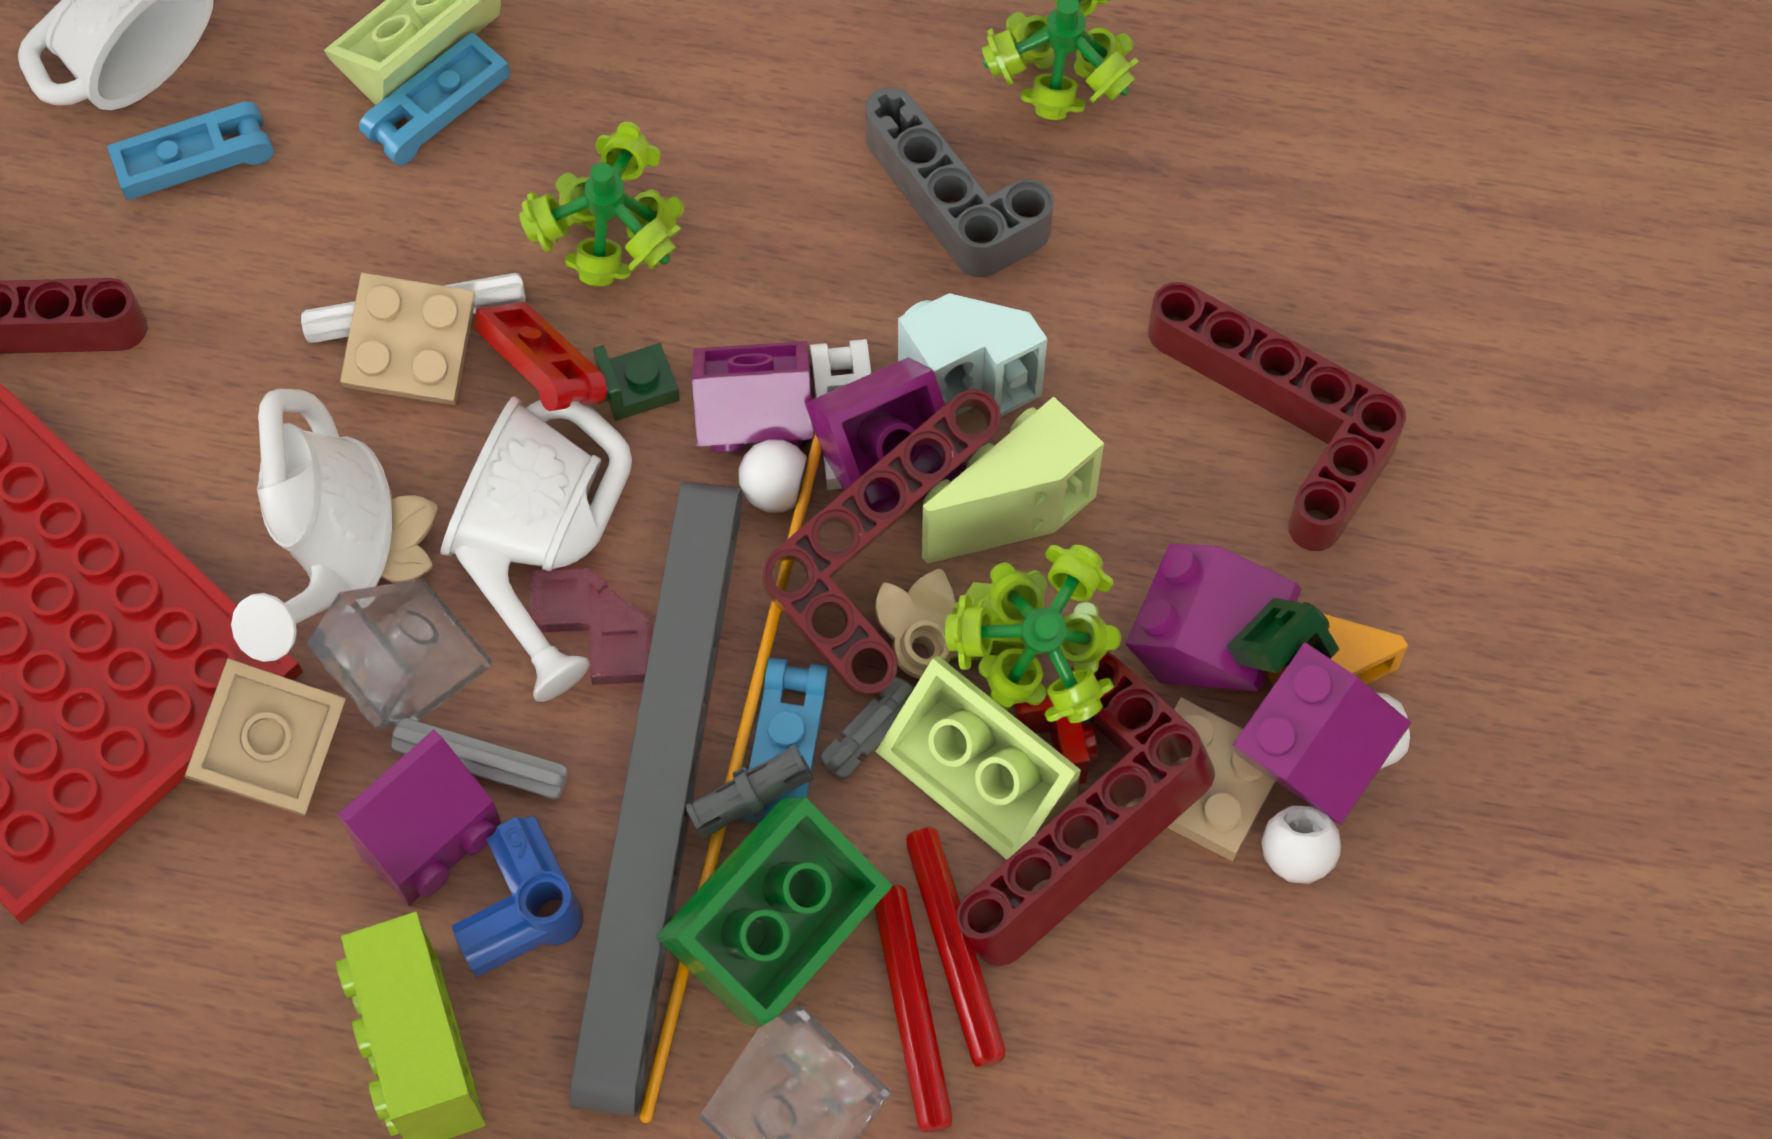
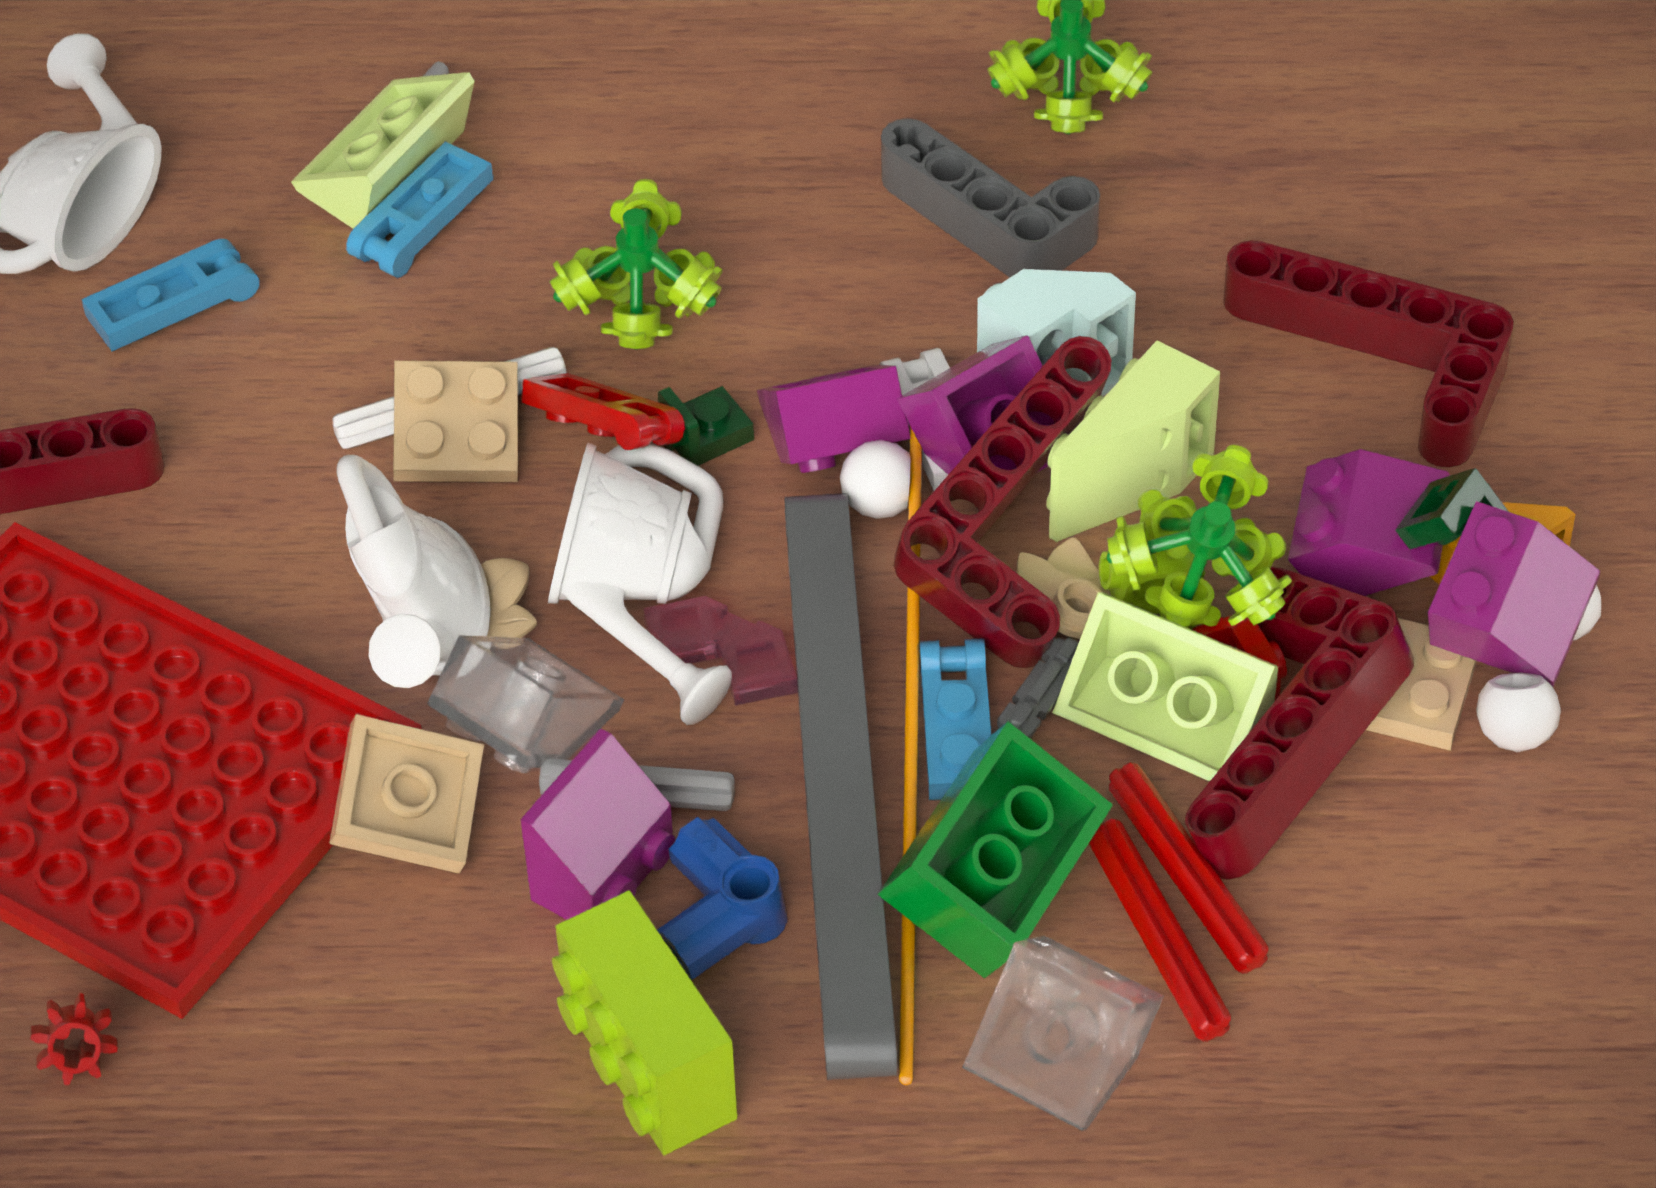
camera: 10 degrees left, 15 degrees down
(749, 791) = (937, 753): dark grey pin -> none

